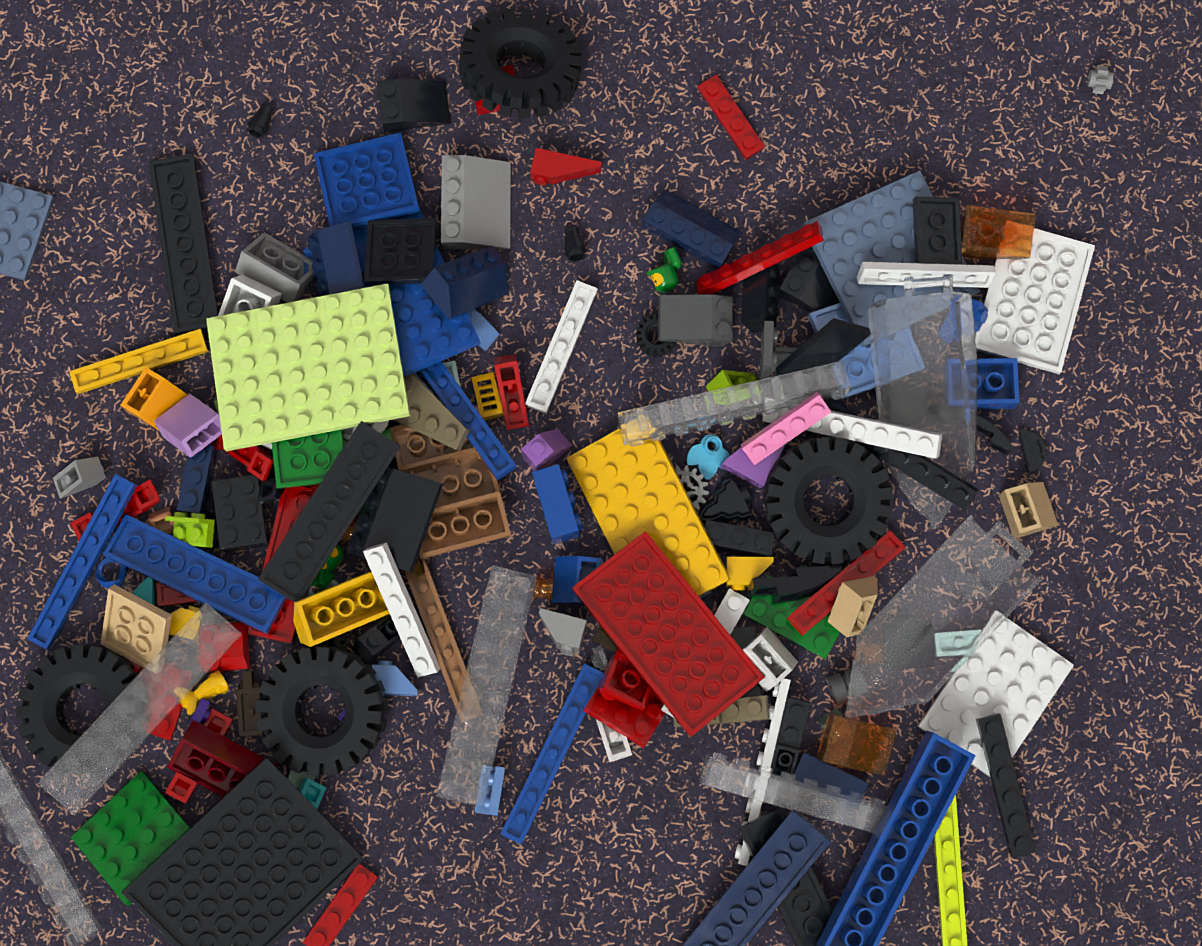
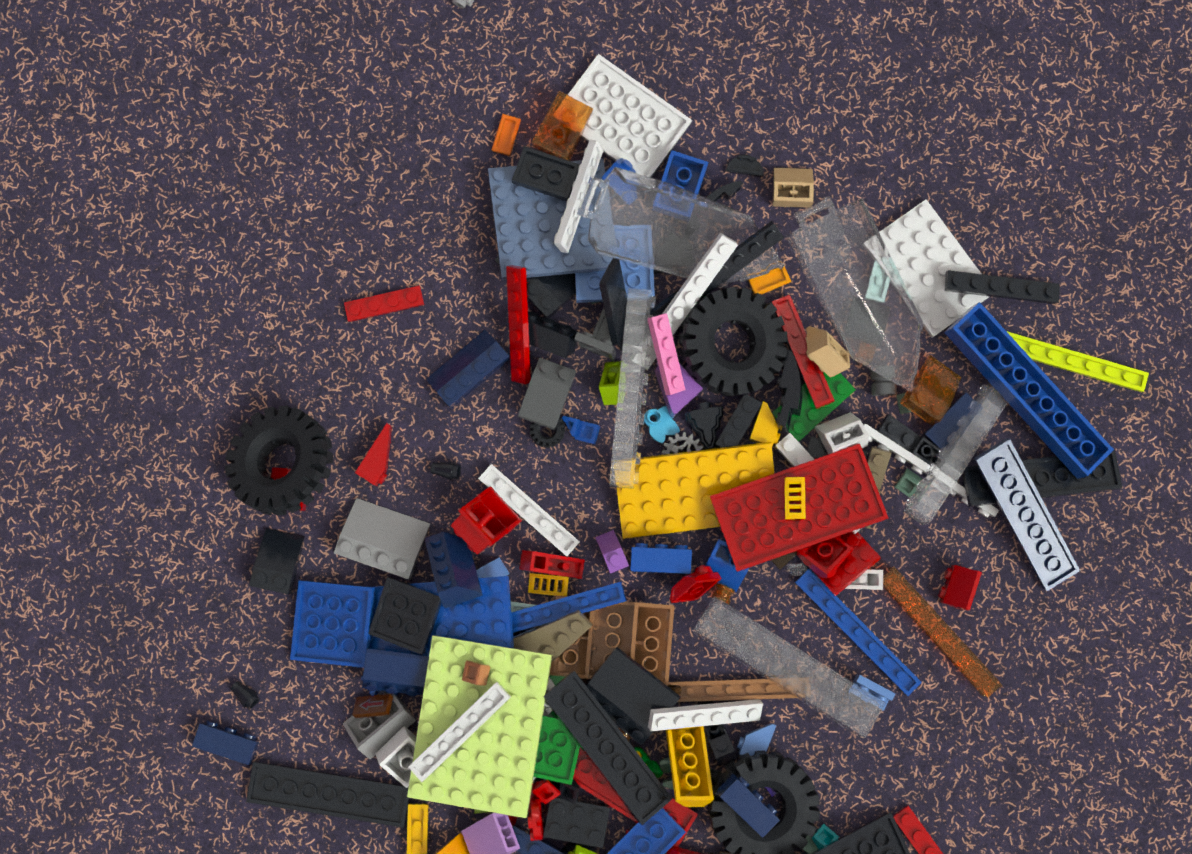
camera: 70 degrees left, 5 degrees up
(204, 119) = (226, 742): none -> dark blue brick
(226, 464) = (535, 820): none -> red plate
(293, 254) = (372, 706): none -> reddish brown tile
(293, 345) = (459, 731): none -> white plate
(317, 687) = (748, 804): none -> dark blue brick
(362, 341) = (476, 673): none -> nougat slope
(532, 300) = (485, 521): none -> red piece
(541, 550) = (694, 585): none -> red slope
(565, 631) = (768, 589): light grey slope -> none
(584, 846) = (940, 633): none -> clear orange tile
(643, 850) = (959, 587): none -> red slope
(665, 277) = (499, 405): green piece -> none
(669, 374) = (582, 430): none -> blue slope
(673, 616) = (794, 480): none -> yellow slope
(742, 751) = (908, 482): none -> sand green slope
(912, 521) = (770, 281): none -> light orange tile
(965, 180) = (506, 135): none -> orange tile

